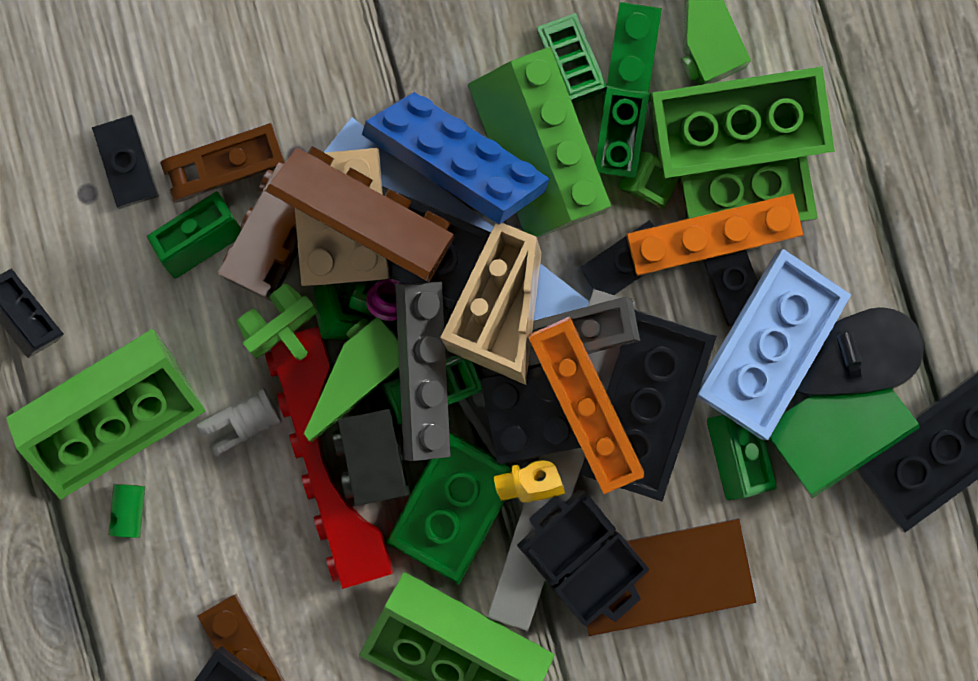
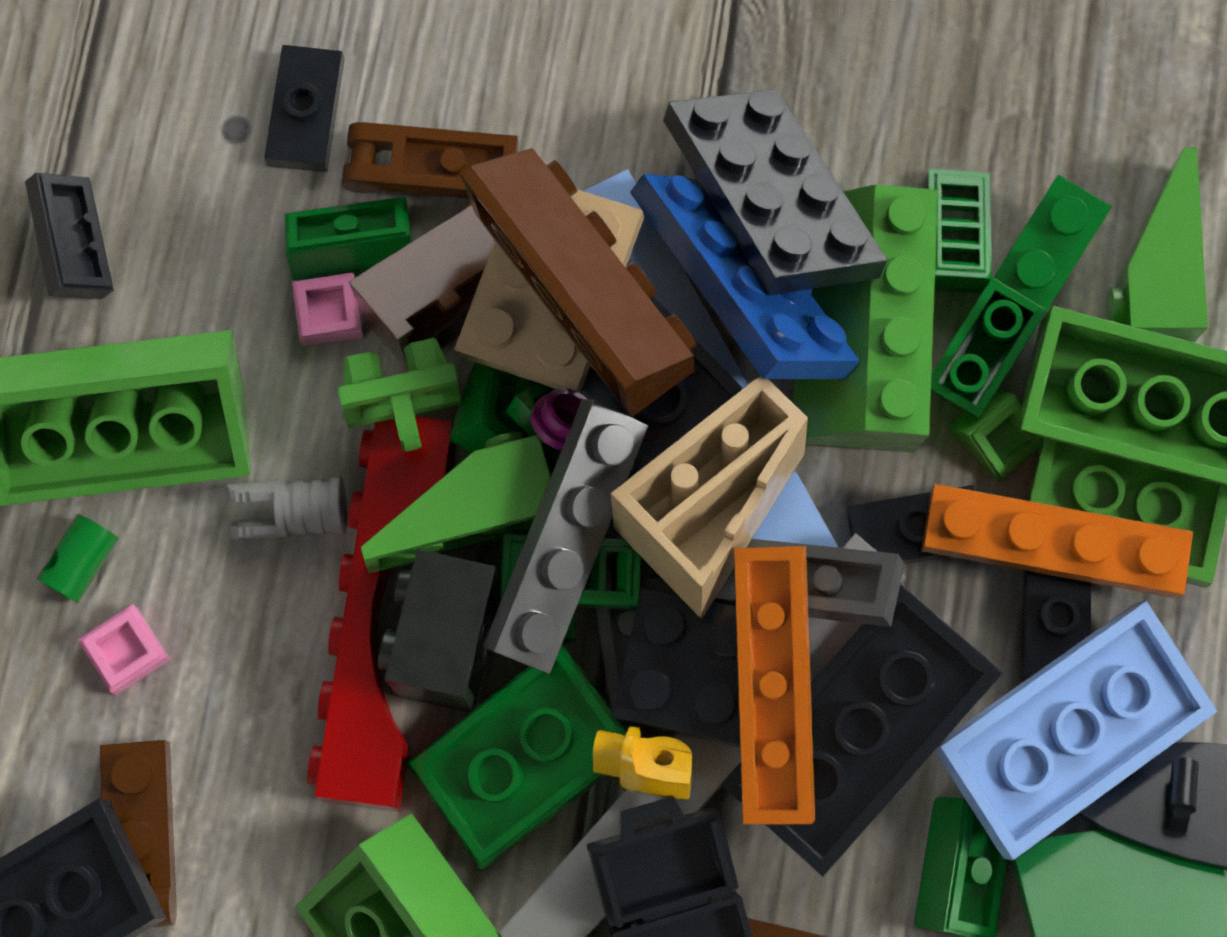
camera: 30 degrees right, 10 degrees down
(181, 551) = (124, 649): none -> bright pink tile
(203, 285) = (327, 310): none -> bright pink tile
(449, 92) = (774, 192): none -> plate

